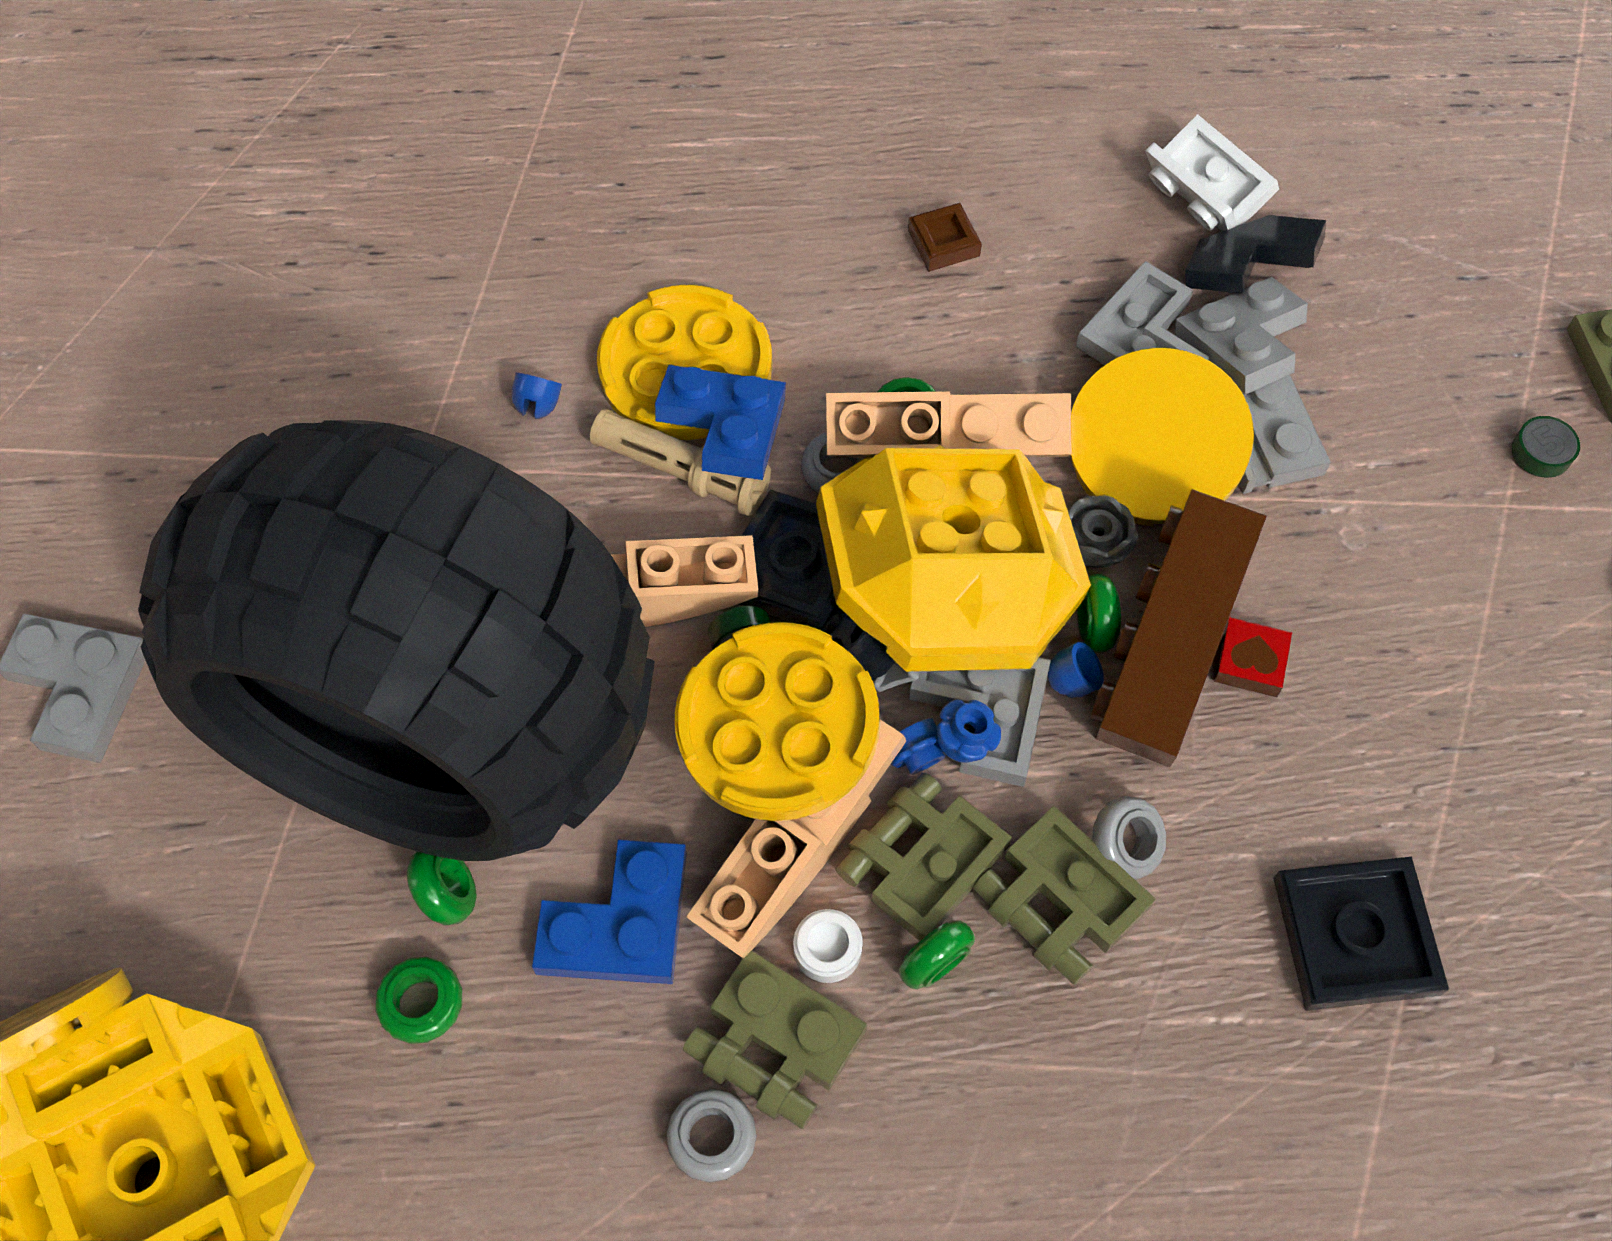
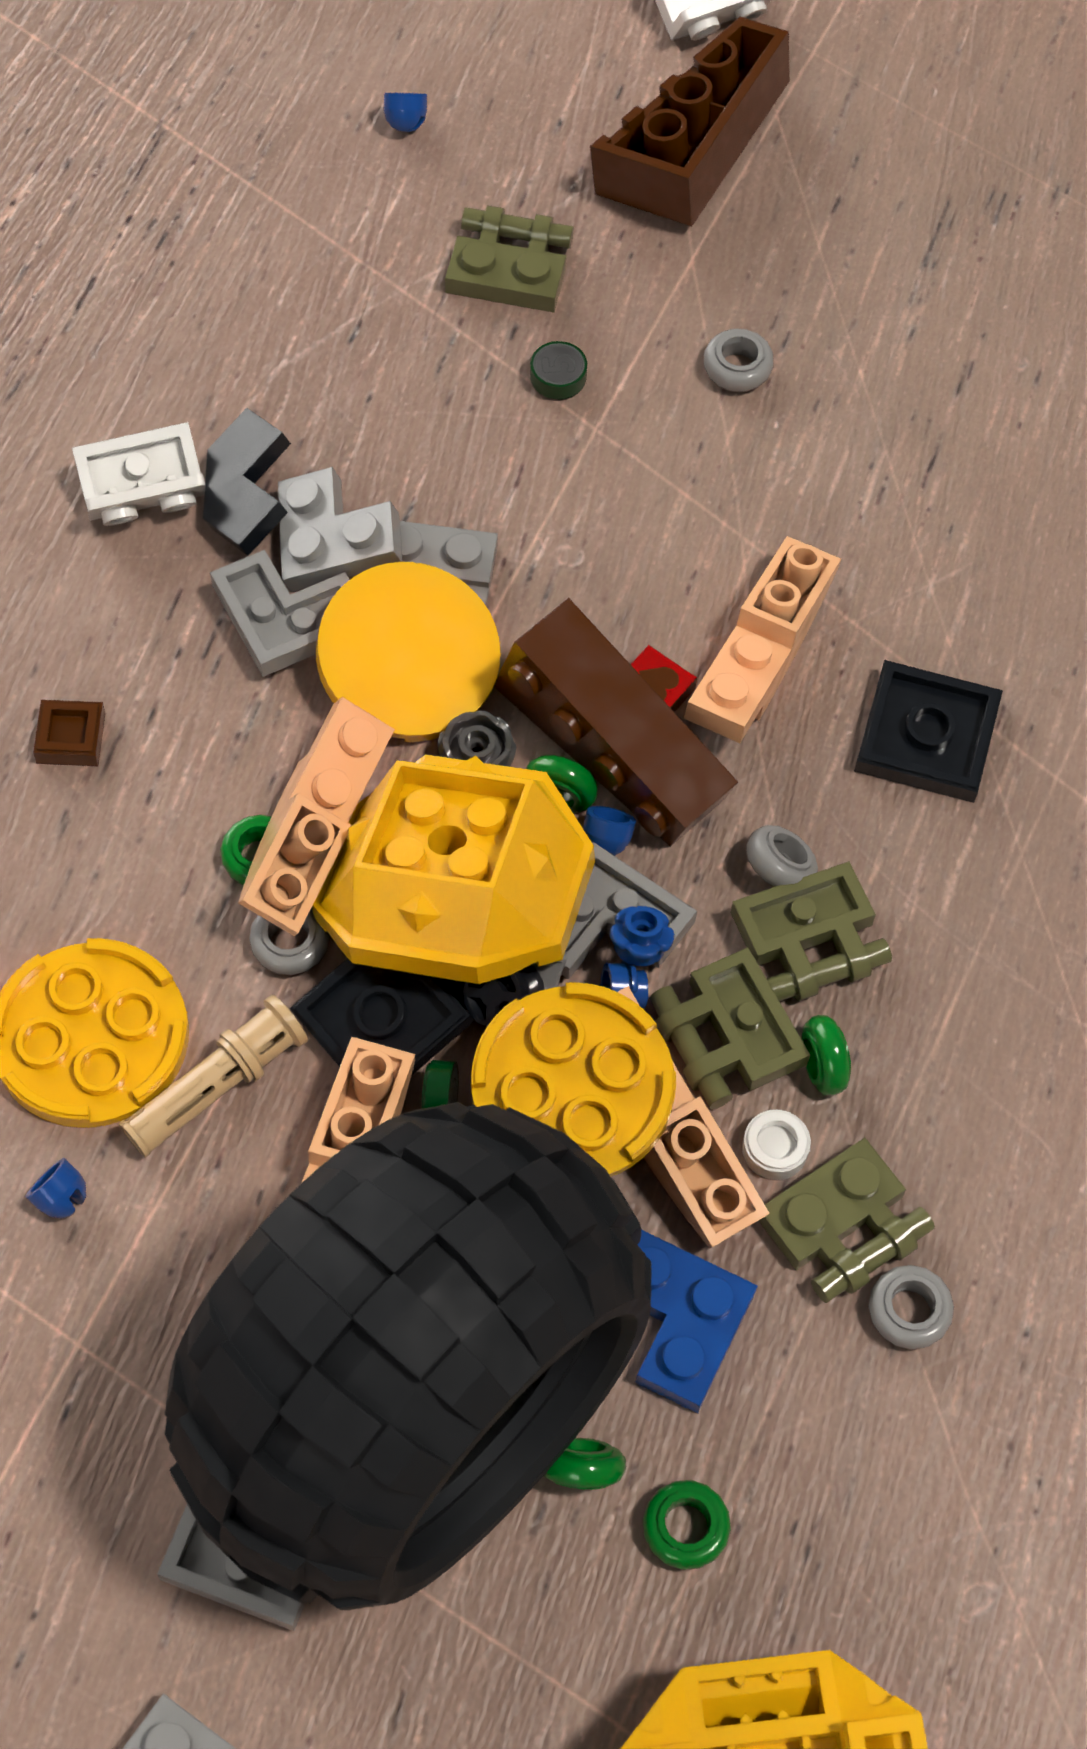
camera: 70 degrees left, 0 degrees up
(735, 409) = (198, 994): blue plate -> none
(1361, 735) = (763, 641): none -> light nougat slope

